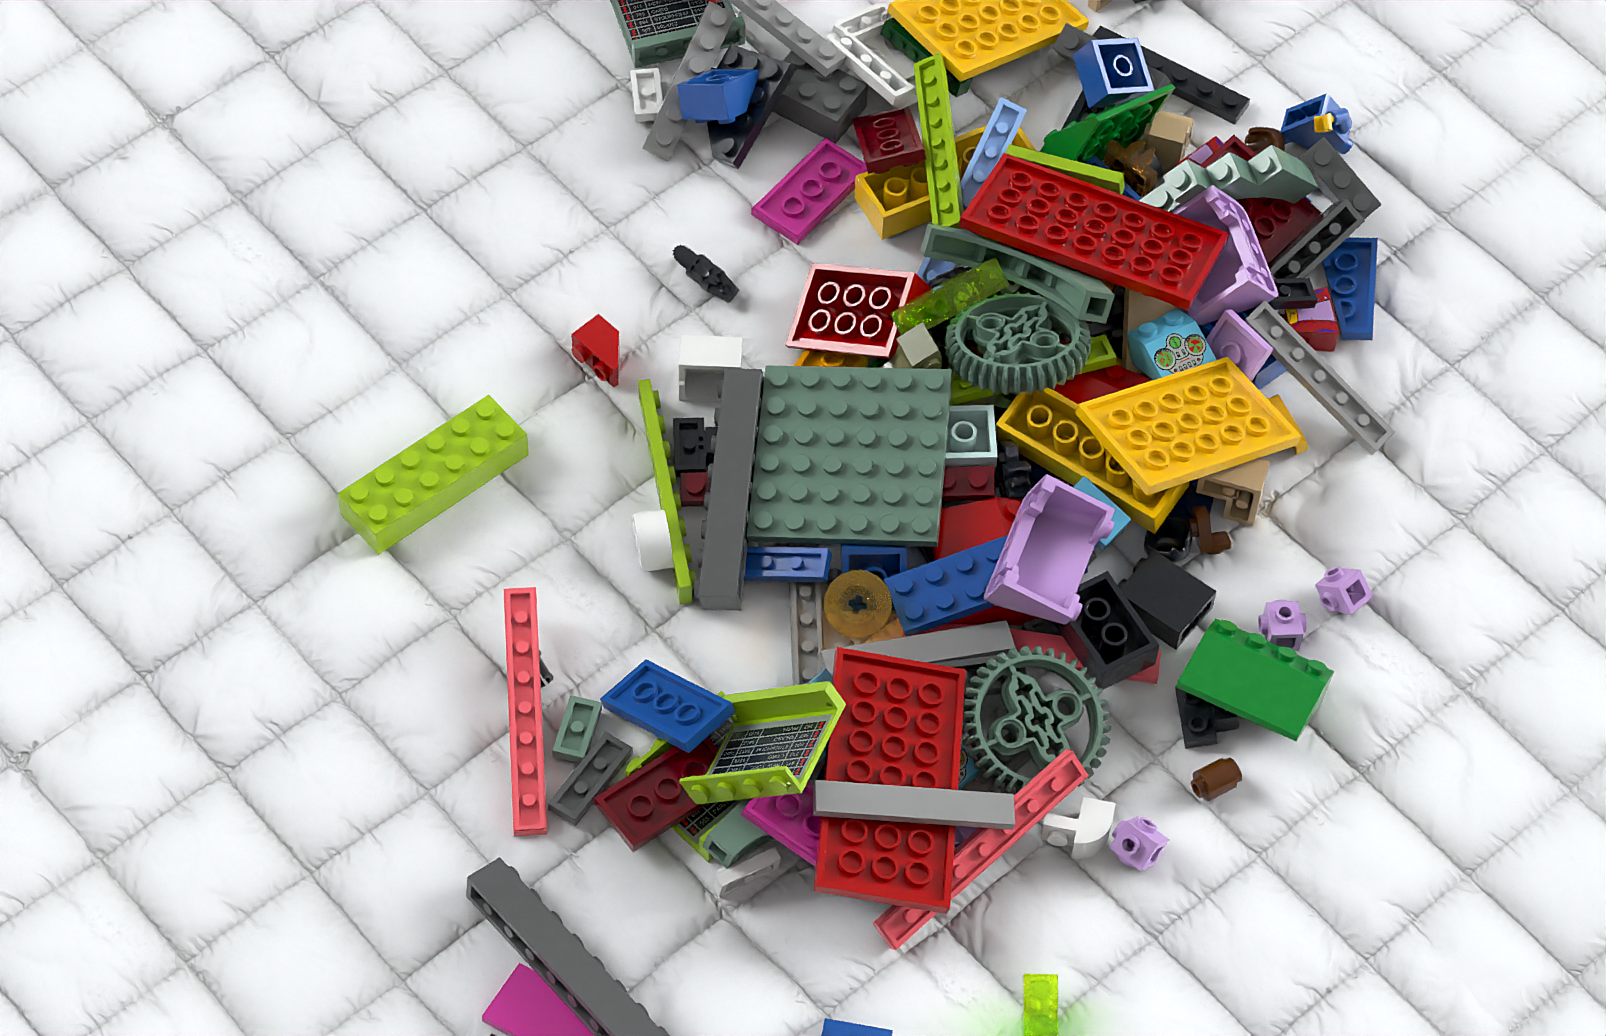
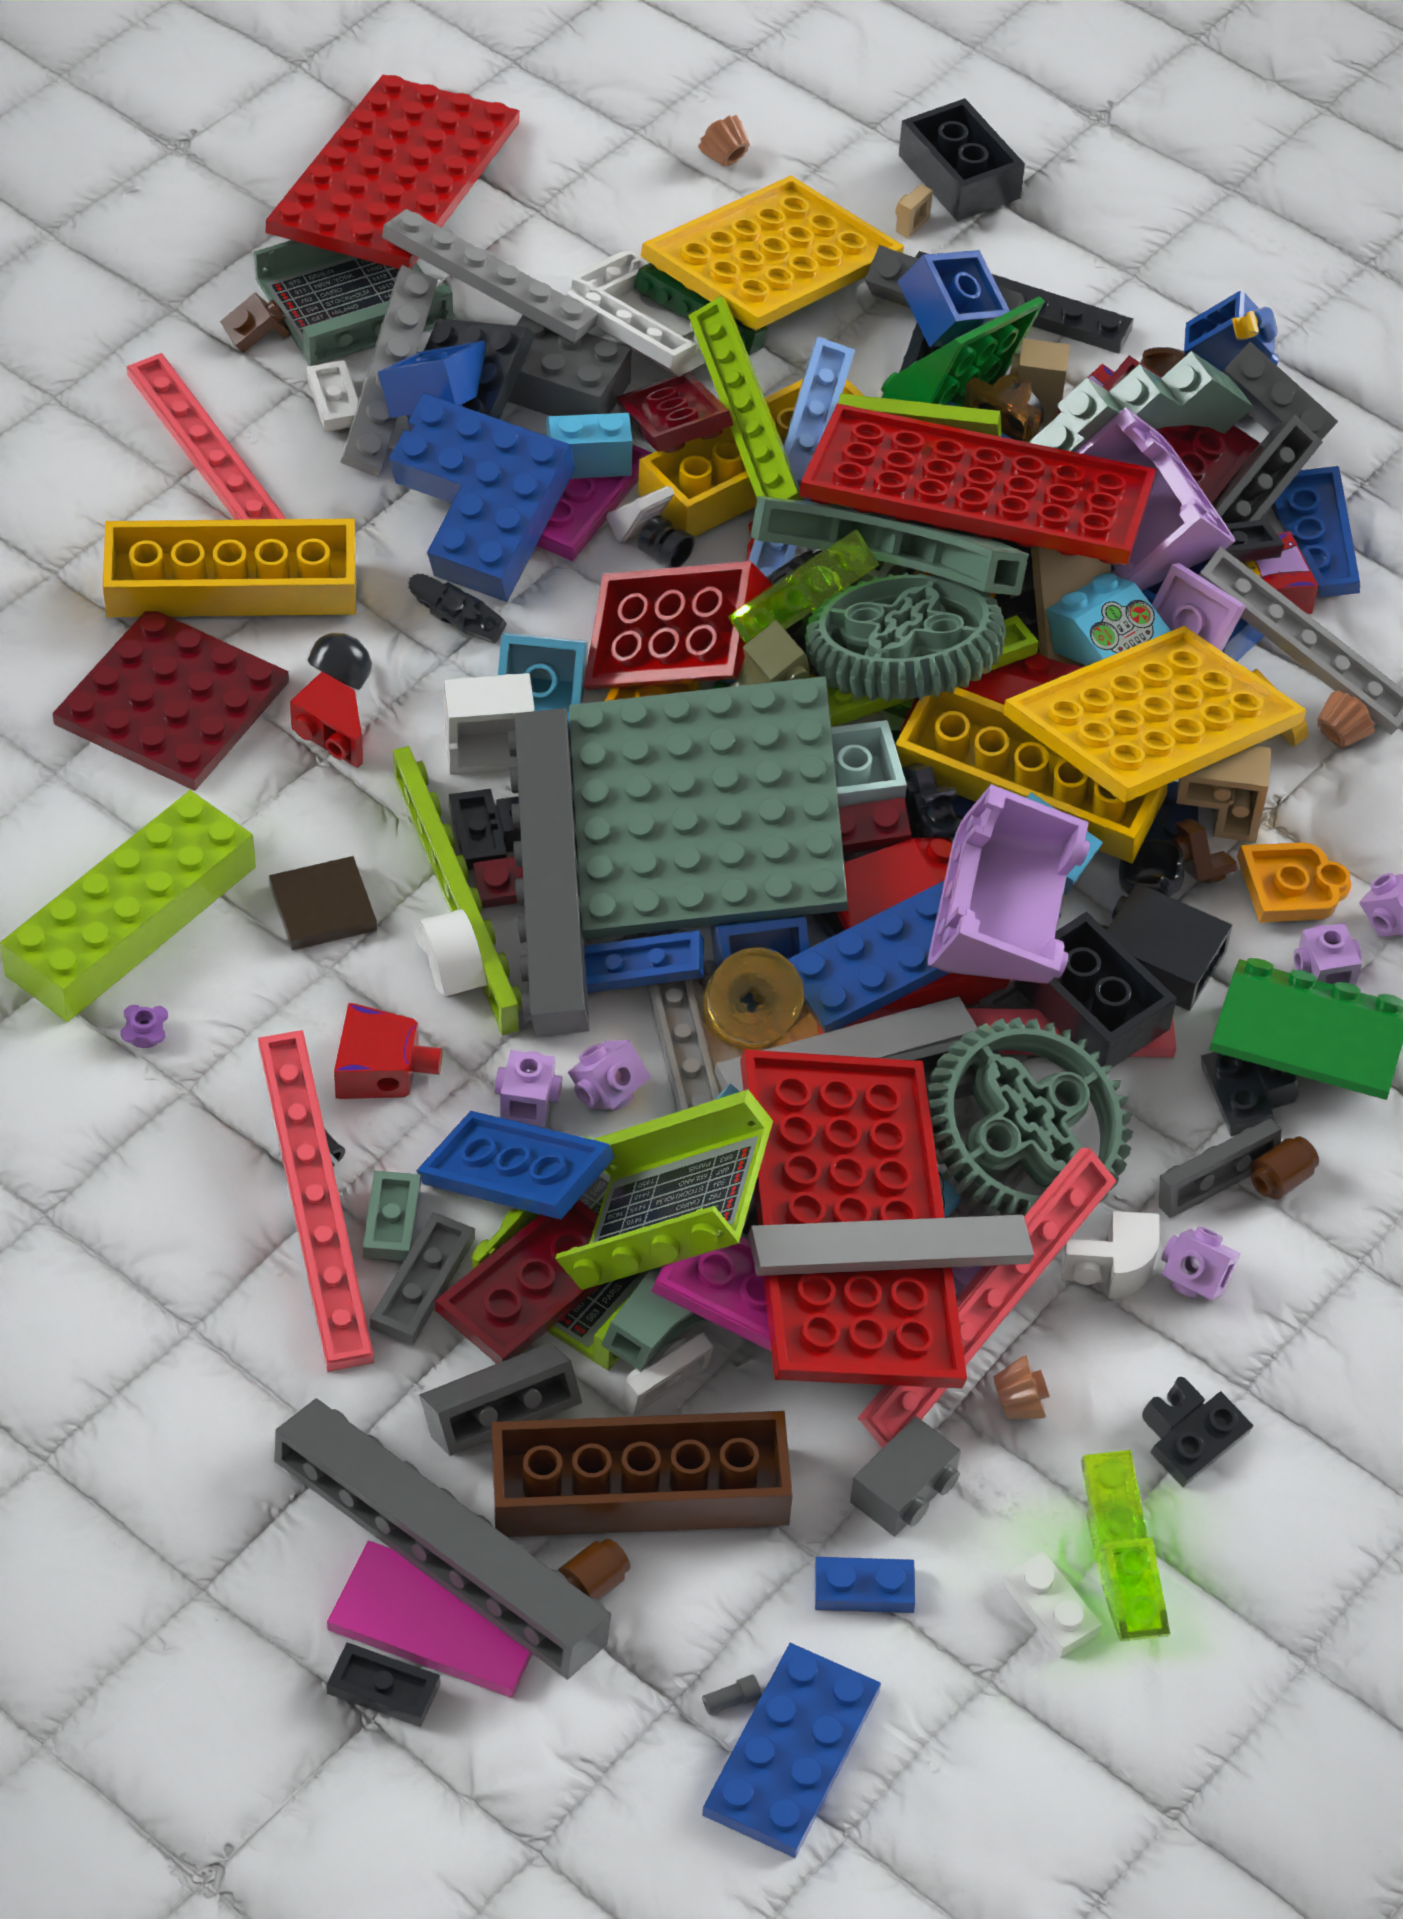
camera: 10 degrees left, 5 degrees down
(433, 572) = (144, 1035): none -> medium lavender plate
(490, 318) = (171, 698): none -> dark red plate
(547, 224) = (230, 567): none -> yellow brick
(555, 137) = (201, 440): none -> coral tile
(570, 488) = (322, 903): none -> dark brown tile
(590, 609) = (380, 1055): none -> red torso
(598, 28) = (253, 321): none -> reddish brown bracket
(614, 305) = (342, 659): none -> black hair
(627, 874) = (512, 1390): none -> dark grey brick
(670, 1006) = (597, 1568): none -> reddish brown brick
(688, 648) = (528, 1087): none -> lavender brick
(712, 942) = (641, 1473): none -> reddish brown brick
(746, 646) = (608, 1075): none -> lavender brick
(750, 183) = (499, 487): none -> blue piece
(762, 331) = (554, 667): none -> medium azure slope
(823, 157) = (597, 441): none -> medium azure slope
(849, 216) = (632, 517): none -> white slope
(868, 241) = (667, 543): none -> black wheel
(898, 970) = (906, 1476): none -> dark grey brick
(992, 919) = (1021, 1390): none -> nougat piece
(1110, 964) = (1191, 1431): none -> black plate
(1166, 773) = (1215, 1168): none -> dark grey plate
(1271, 561) = (1292, 881): none -> light orange plate
(1337, 440) = (1344, 720): none -> nougat piece

